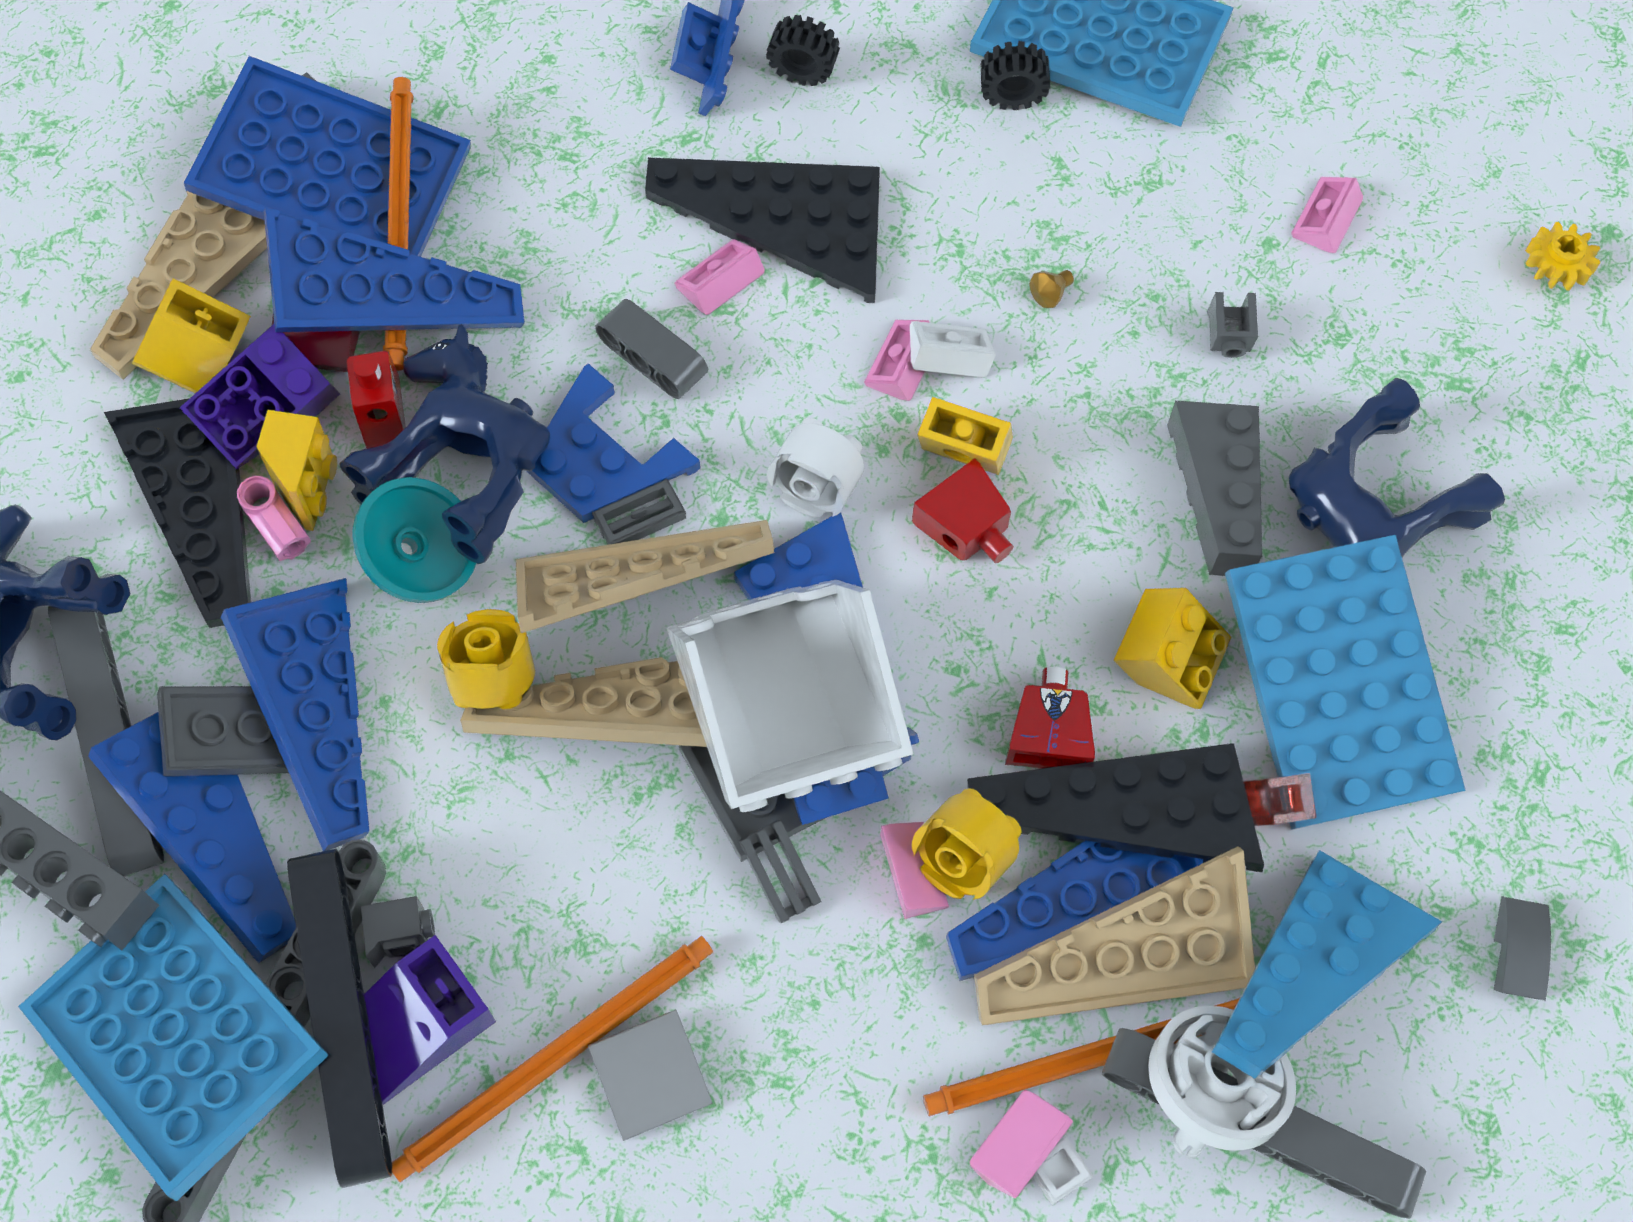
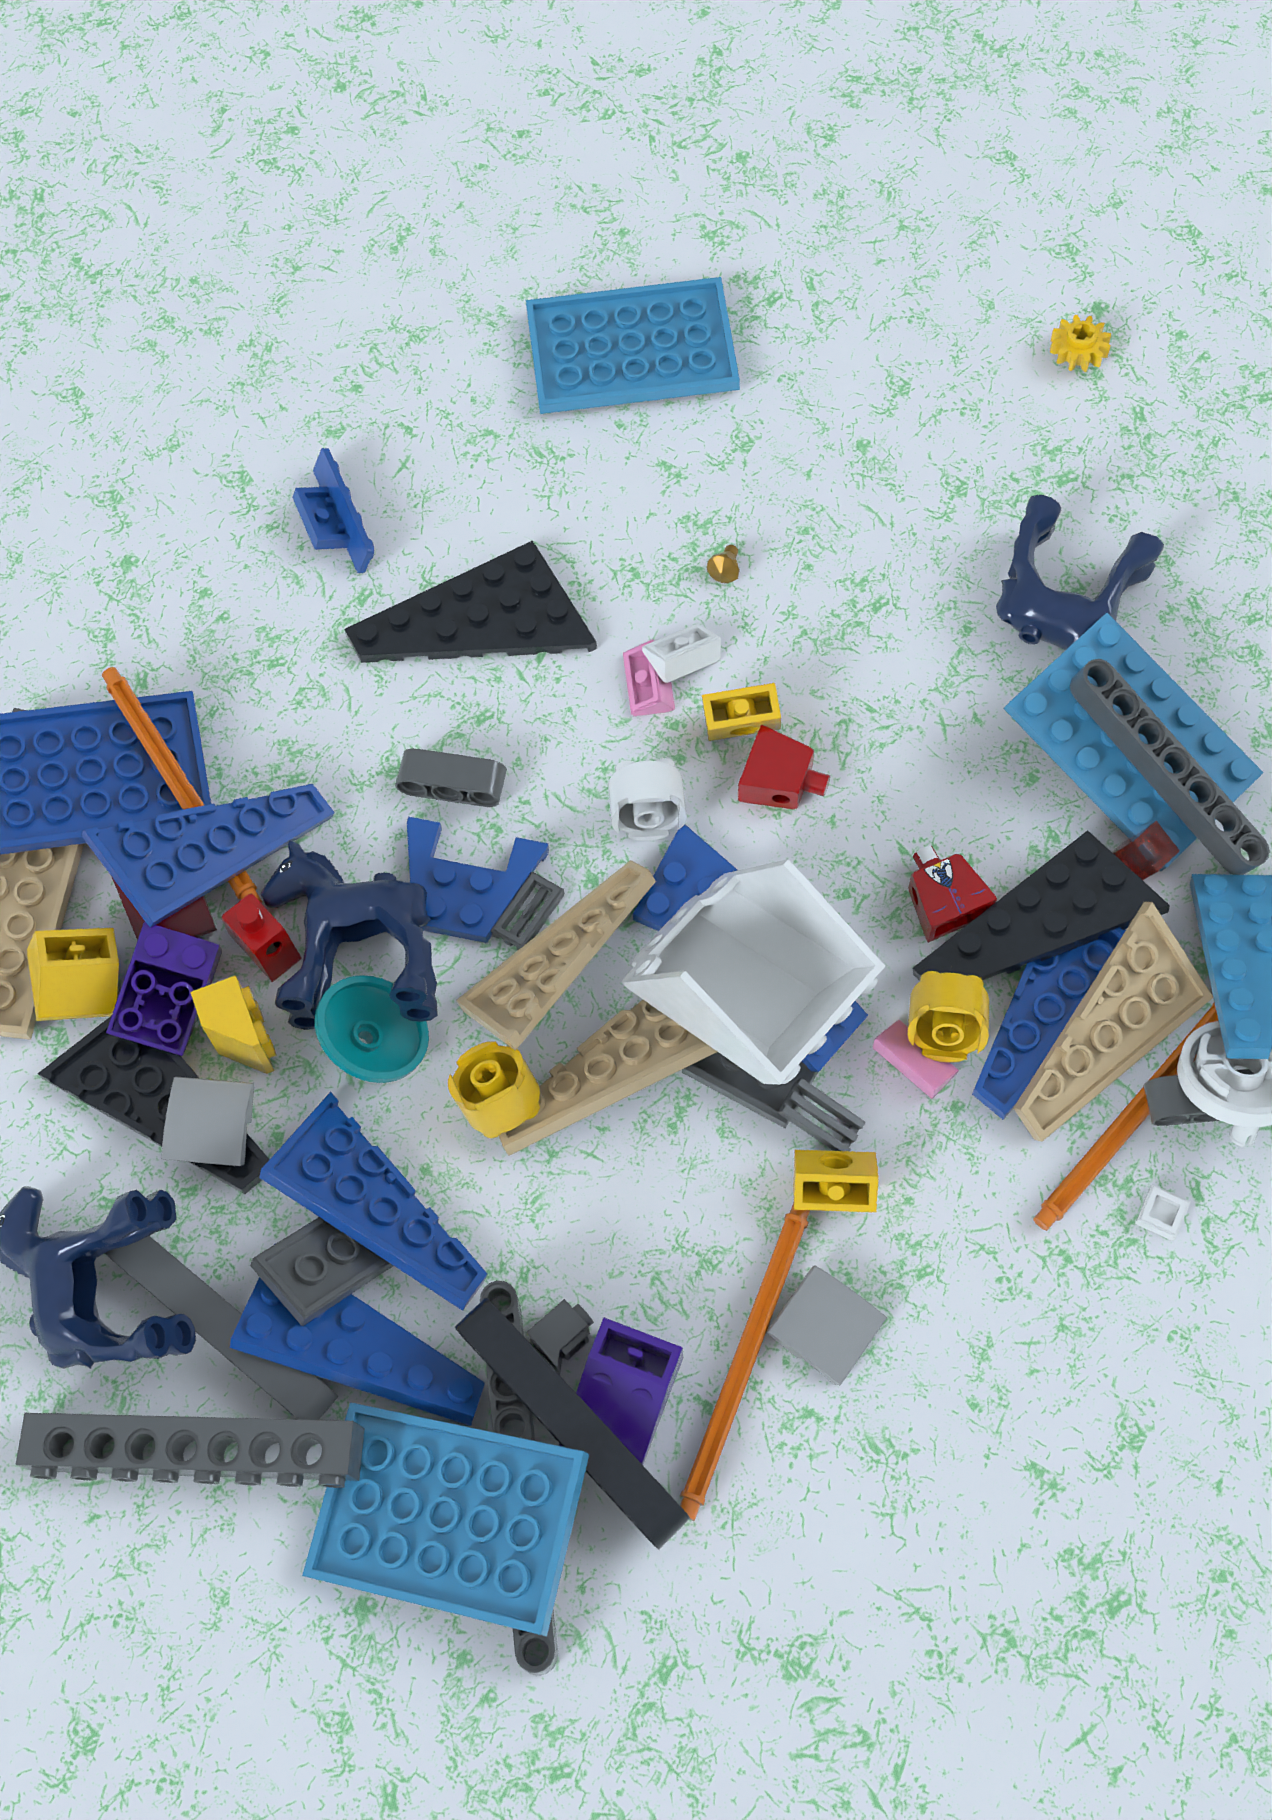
camera: 25 degrees left, 0 degrees up
(214, 539) = (207, 1121): none -> light grey slope
(272, 518) = (265, 1083): bright pink piece -> none
(721, 276) = (464, 691): bright pink slope -> none
(748, 939) = (835, 1181): none -> yellow brick
(803, 50) = (414, 479): black tyre -> none
(1015, 75) = (593, 414): black tyre -> none
(1020, 1143) = (1126, 1209): bright pink slope -> none
(1173, 646) = (994, 784): yellow slope -> none
(1223, 479) = (951, 642): dark grey wedge -> none
(1232, 328) = (880, 523): dark grey window -> none
(1329, 213) = (890, 398): bright pink slope -> none
(1348, 747) = (1186, 773): none -> dark grey beam

